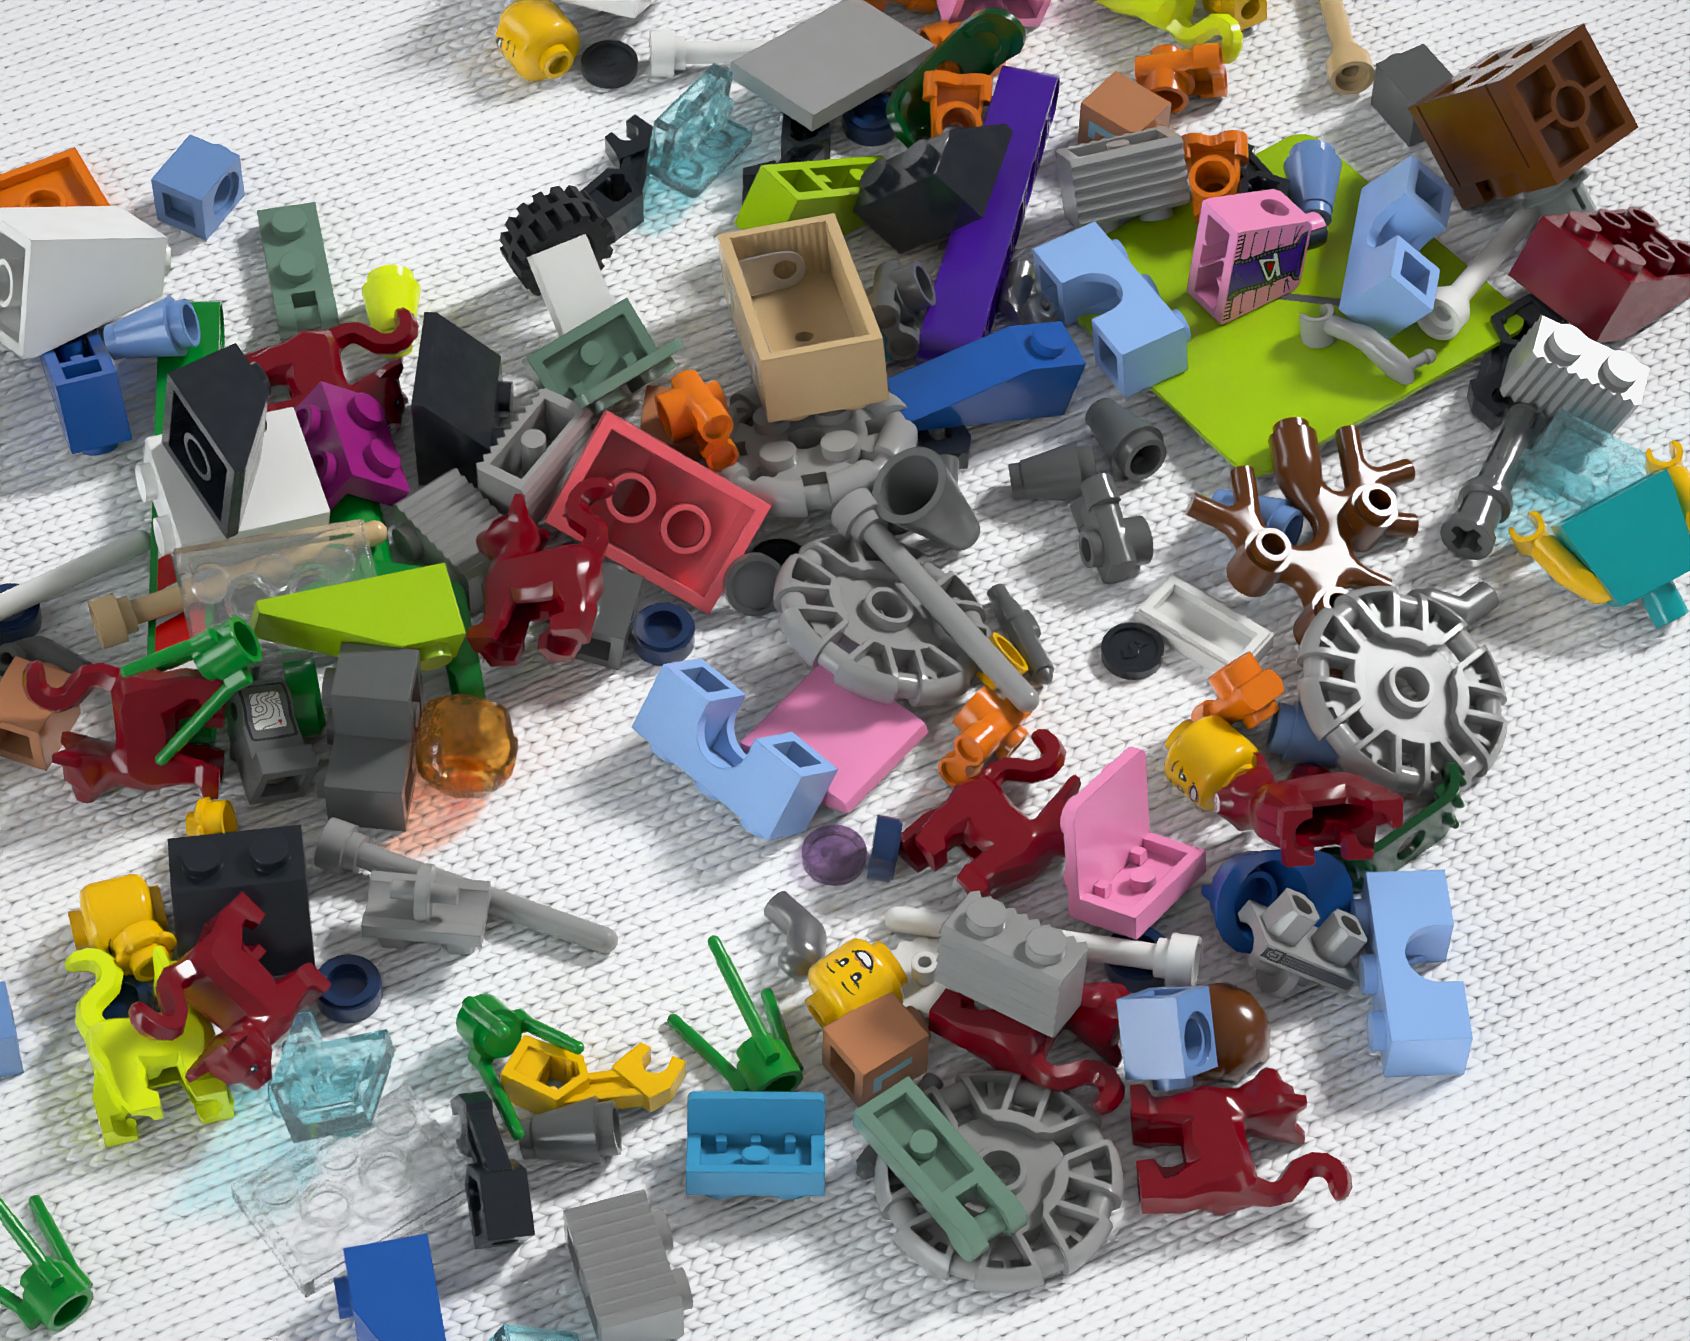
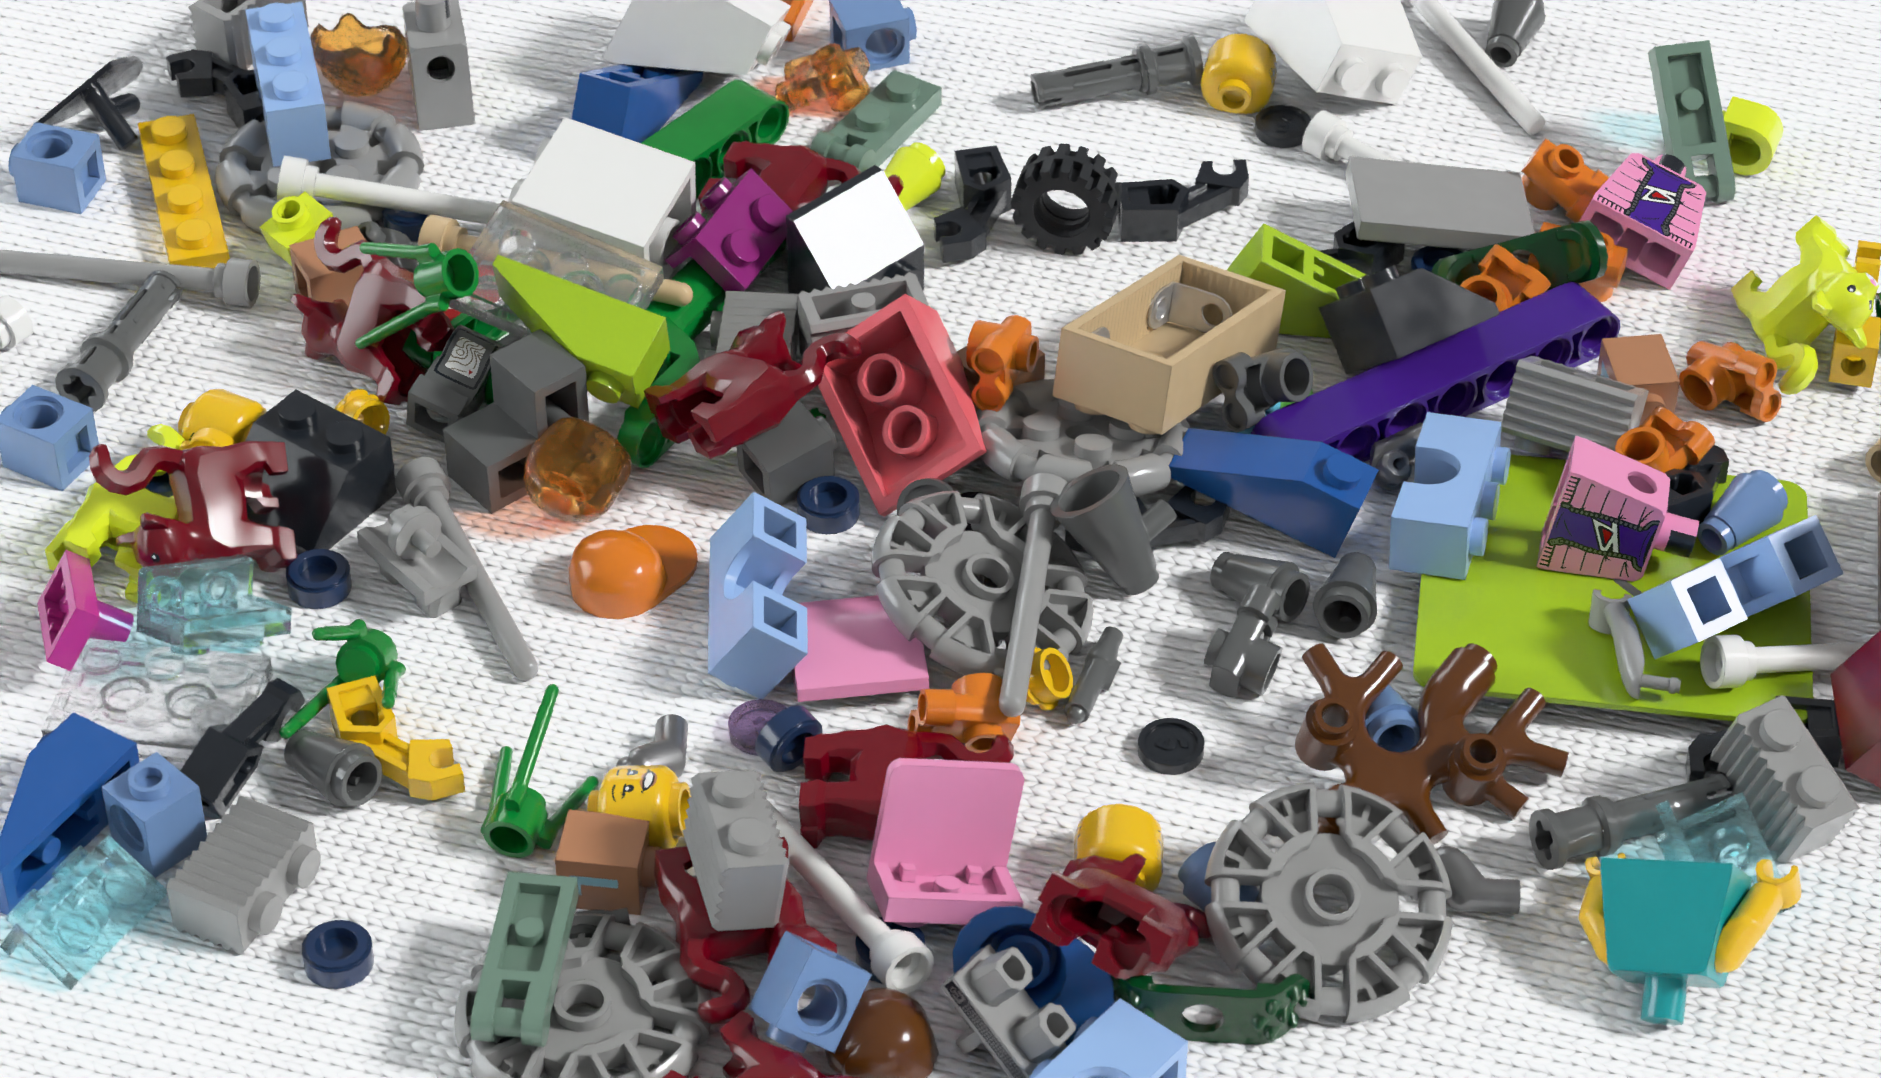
camera: 45 degrees right, 10 degrees down
(155, 331) = (699, 84): medium blue cone -> none
(211, 1167) = (73, 614): none -> dark pink tile
(217, 430) = (593, 128): black slope -> none
(220, 251) = (826, 74): none -> clear orange plate
(435, 270) = (983, 194): none -> black piece
(457, 83) = (1142, 70): none -> dark grey pin
(498, 1278) = (155, 814): none -> medium blue brick
(570, 283) = (1034, 248): white tile -> none
(580, 798) = (630, 569): none -> orange cap
(600, 358) = (996, 288): sand green bracket -> none
(695, 136) = (1267, 187): clear light blue bracket -> none
(755, 1144) = (437, 860): dark azure bracket -> none
(758, 1278) = (337, 954): none -> dark blue tile
(1201, 625) = (1242, 759): white tile -> none
(1243, 693) = (1190, 810): orange plate -> none

